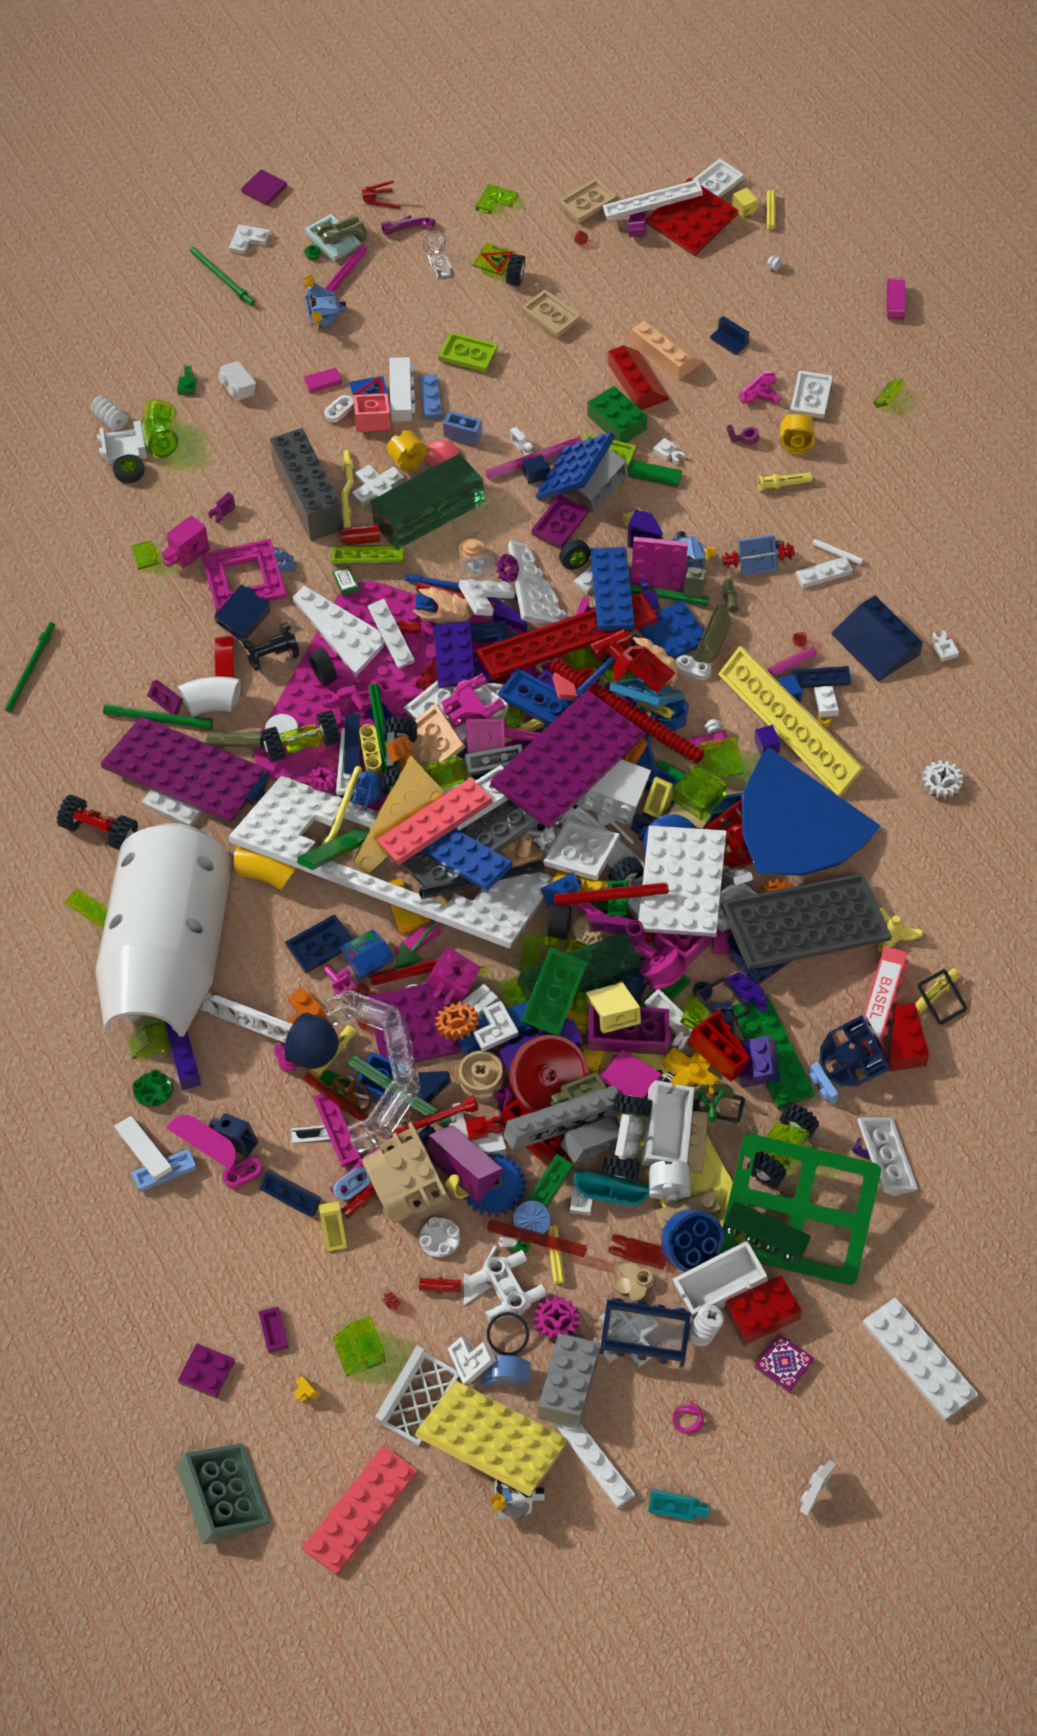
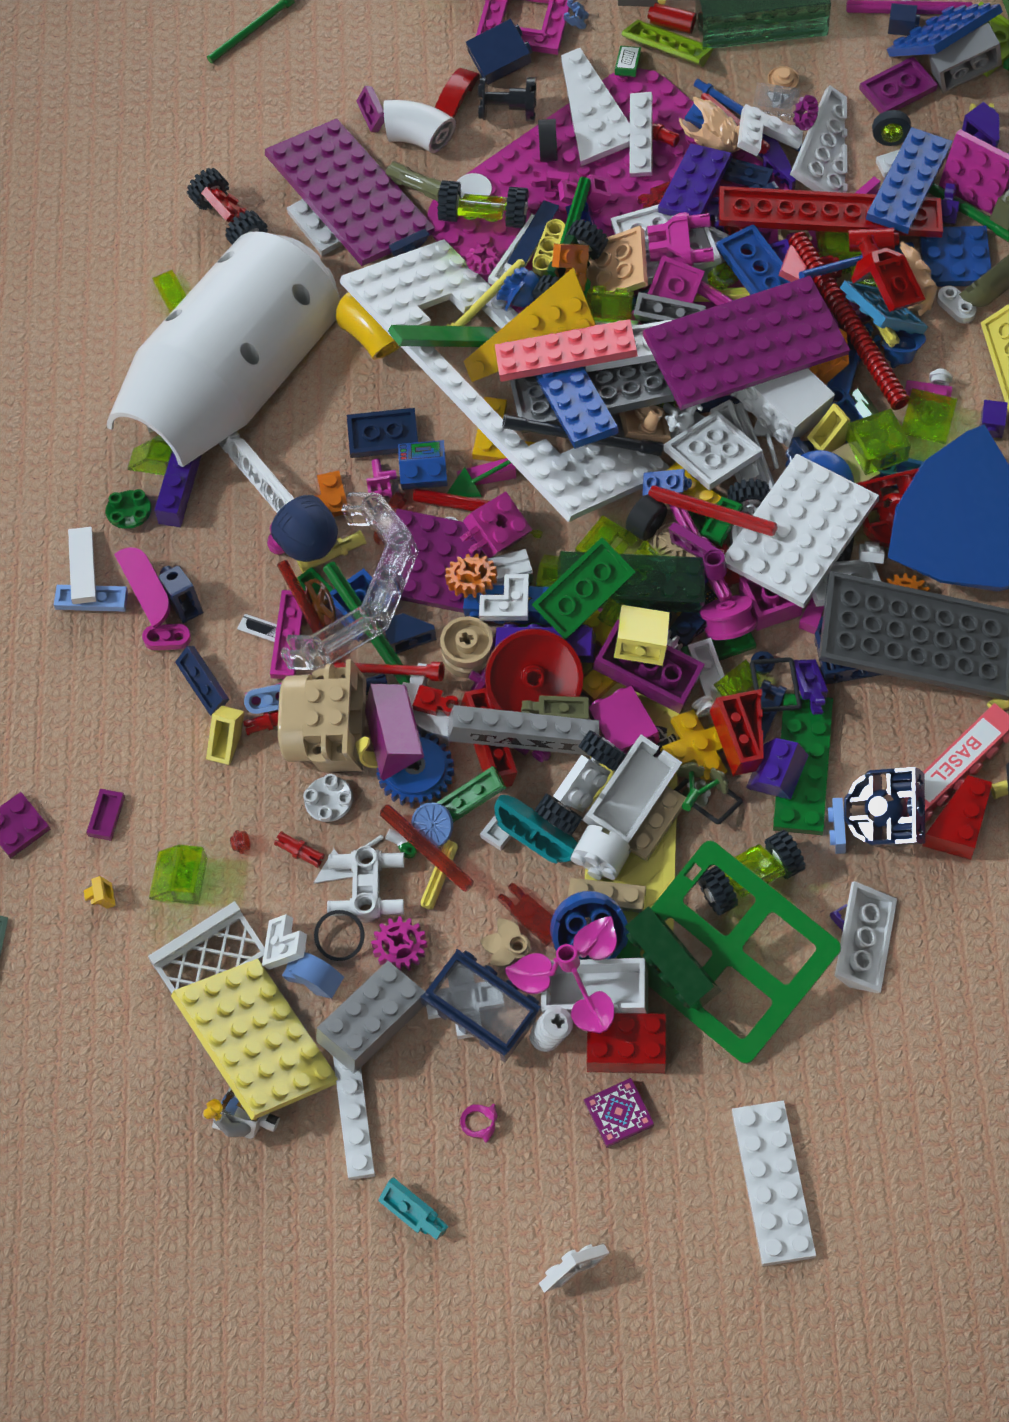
camera: 30 degrees right, 5 degrees up
(199, 723) = (388, 147): green piece -> none
(359, 1510) = (83, 1046): coral plate -> none
(591, 1139) = (538, 767): light grey brick -> none
(704, 1244) = (597, 941): none -> dark pink plant

